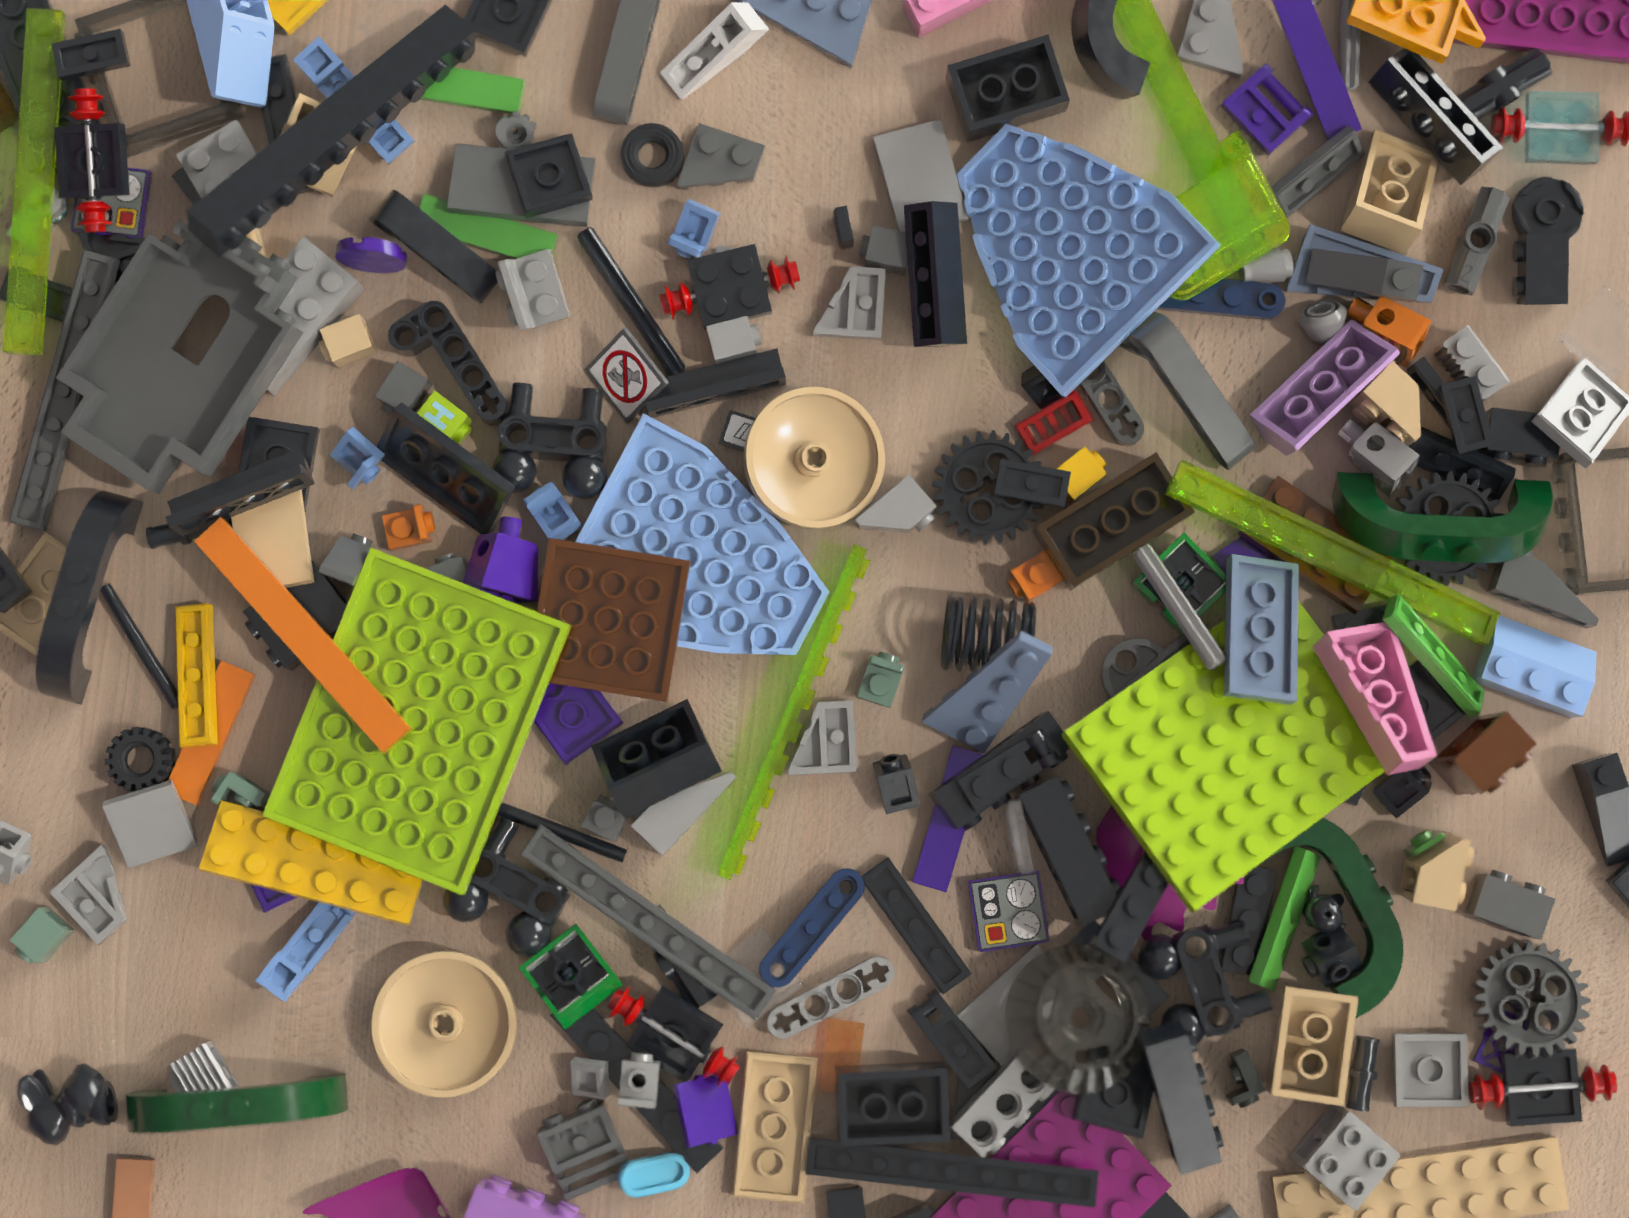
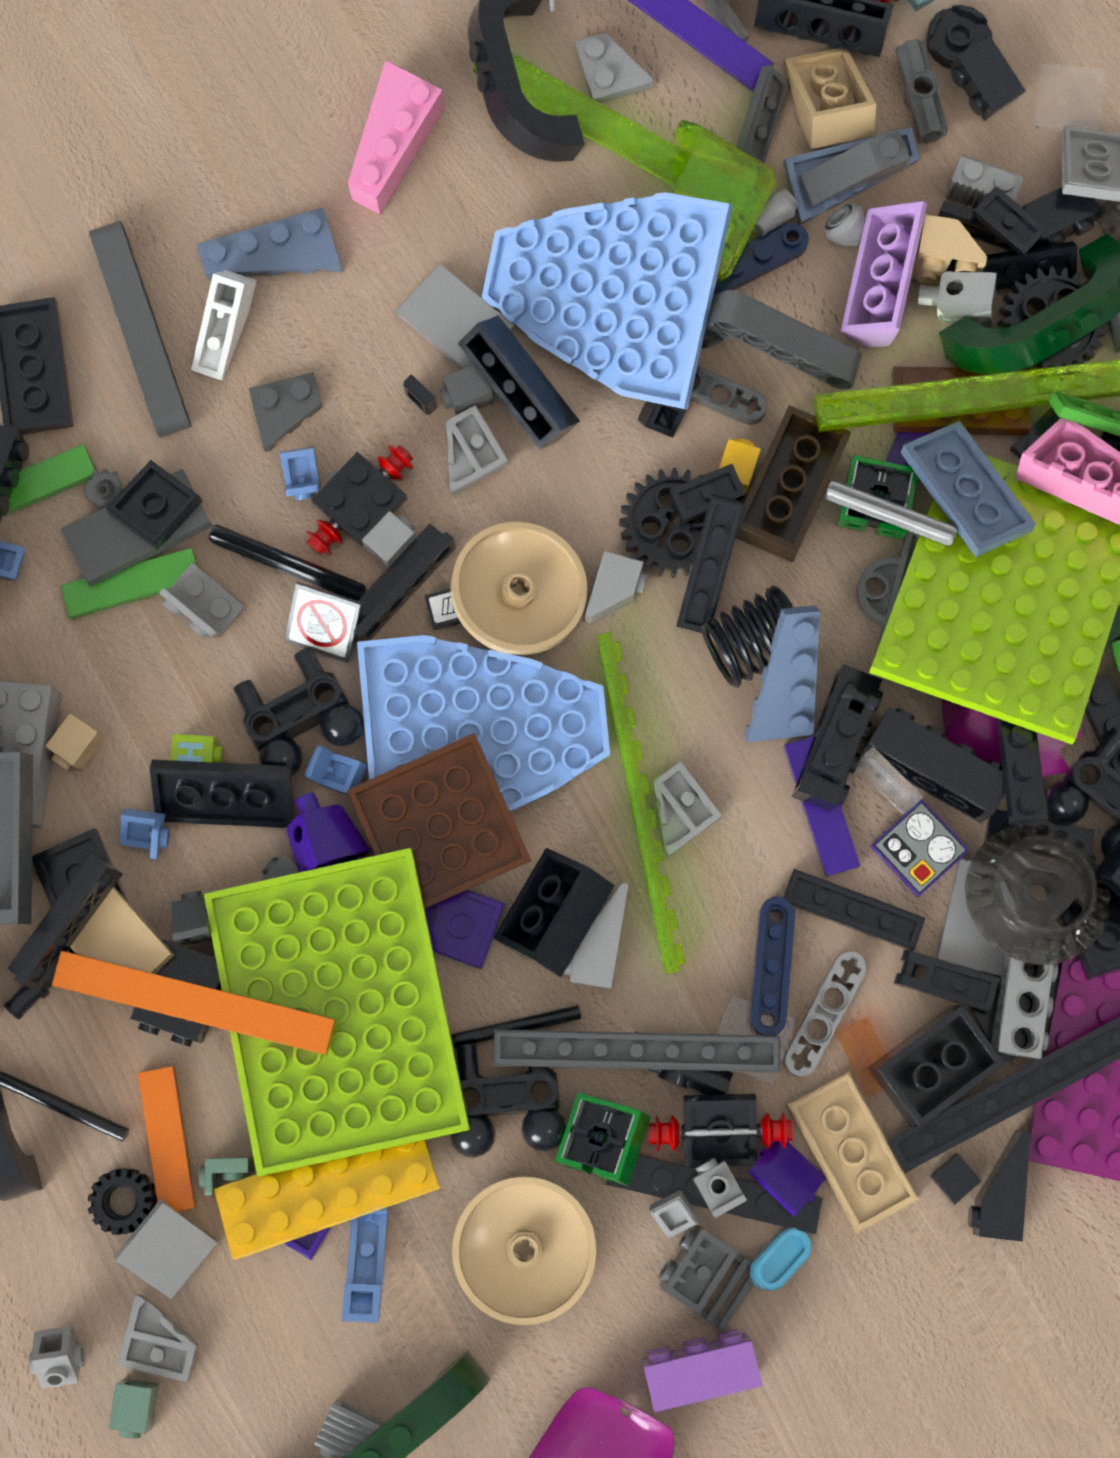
camera: 30 degrees left, 5 degrees down
(196, 675) = (125, 1099): yellow tile -> none
(371, 255) = (49, 660): dark purple tile -> none
(402, 386) = (142, 747): dark grey brick -> none
(408, 527) = (224, 861): orange bracket -> none
(435, 245) = (96, 618): black beam -> none
(458, 365) = (179, 703): black beam -> none
(605, 819) = (544, 990): dark grey brick -> none
(646, 134) = (227, 457): black tyre -> none
(881, 679) = (691, 730): sand green bracket -> none
(896, 783) = (760, 804): black bracket -> none
(994, 545) = (710, 562): none -> black tile
(1007, 87) = (475, 203): black brick -> none
(1034, 577) = (757, 570): orange bracket -> none
(1079, 405) = (702, 414): red slope -> none
(1259, 117) = (686, 103): dark purple plate -> none
(1402, 329) = (902, 188): orange torso -> none

